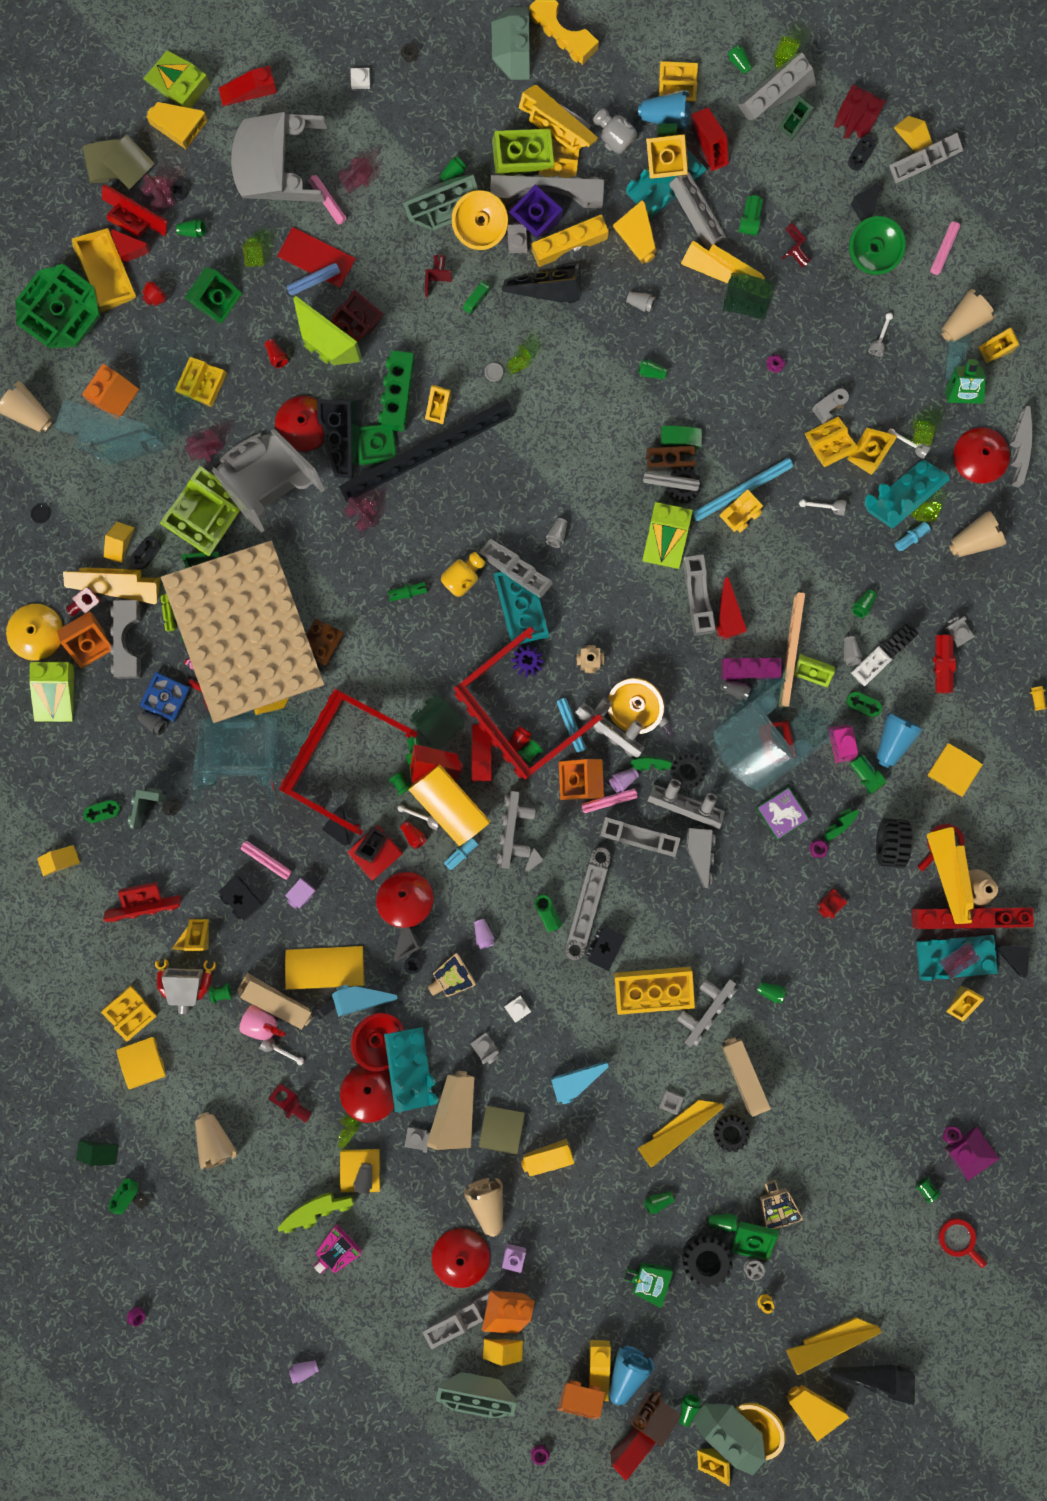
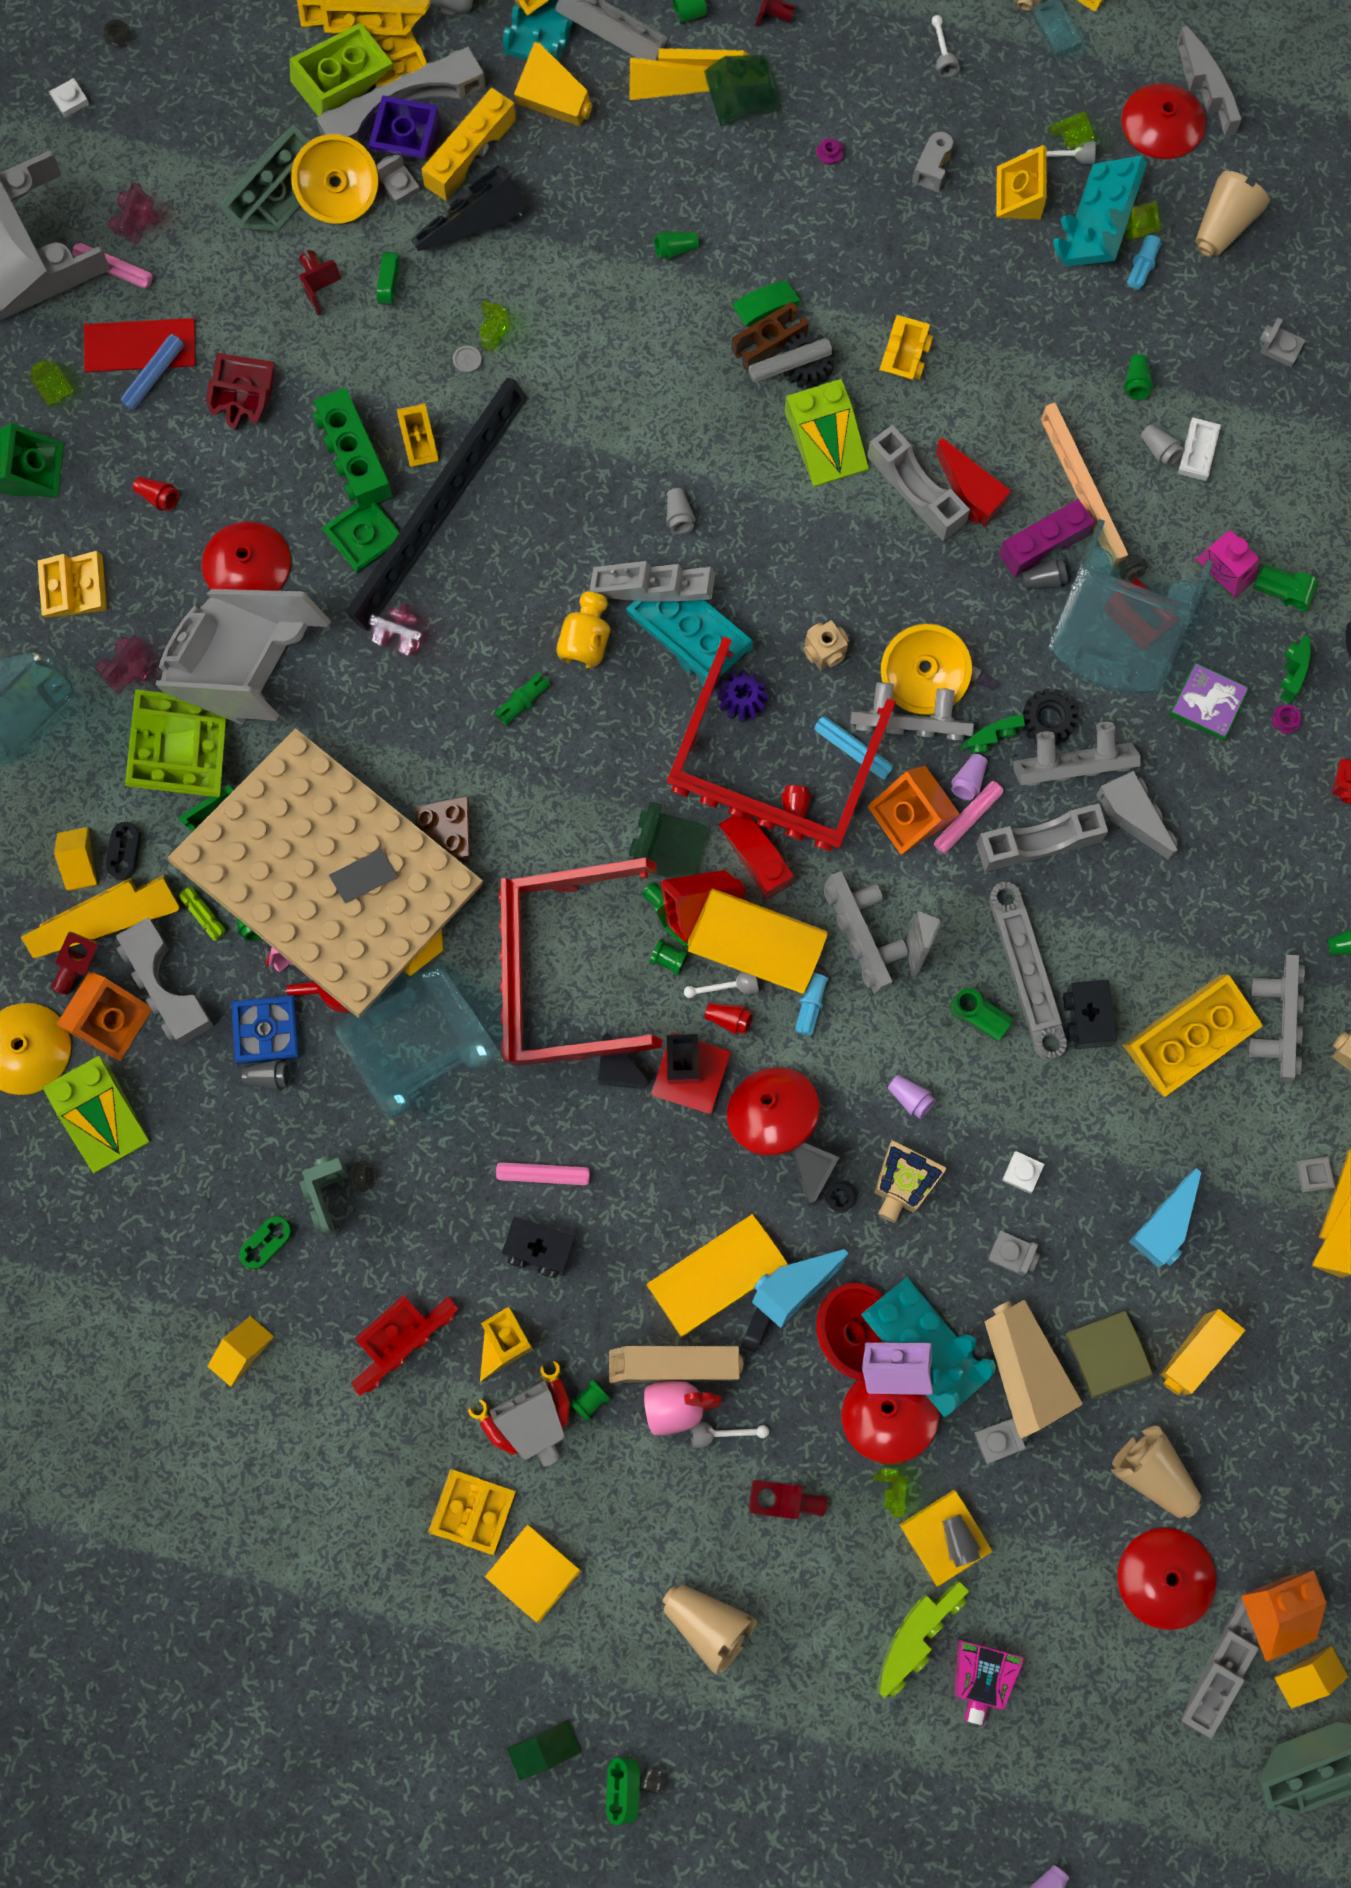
camera: 30 degrees left, 10 degrees down
(259, 646) = (363, 875): none -> dark grey sticker
(300, 893) = (620, 1190): lavender brick -> none
(325, 337) = (213, 425): lime slope -> none
(341, 427) = (304, 538): black wedge -> none
(384, 1073) = (897, 1368): none -> lavender panel
(453, 169) = (261, 137): green cone -> none
(513, 1258) = (1243, 1528): lavender brick -> none
(530, 751) = (822, 809): green bush -> none
(641, 301) = (609, 168): light grey cone -> none
(735, 493) = (882, 333): medium azure axle -> none
(814, 670) = (1130, 497): lime slope -> none
(831, 441) = (964, 206): yellow slope -> none
(837, 507) = (1025, 279): hinge -> none
(865, 700) = (1221, 496): green beam -> none
(896, 739) = (1294, 518): dark azure cone -> none
(900, 639) = (1215, 391): black tyre -> none
(944, 664) = (1290, 394): red piece -> none
(966, 384) = (1090, 41): green torso -> none

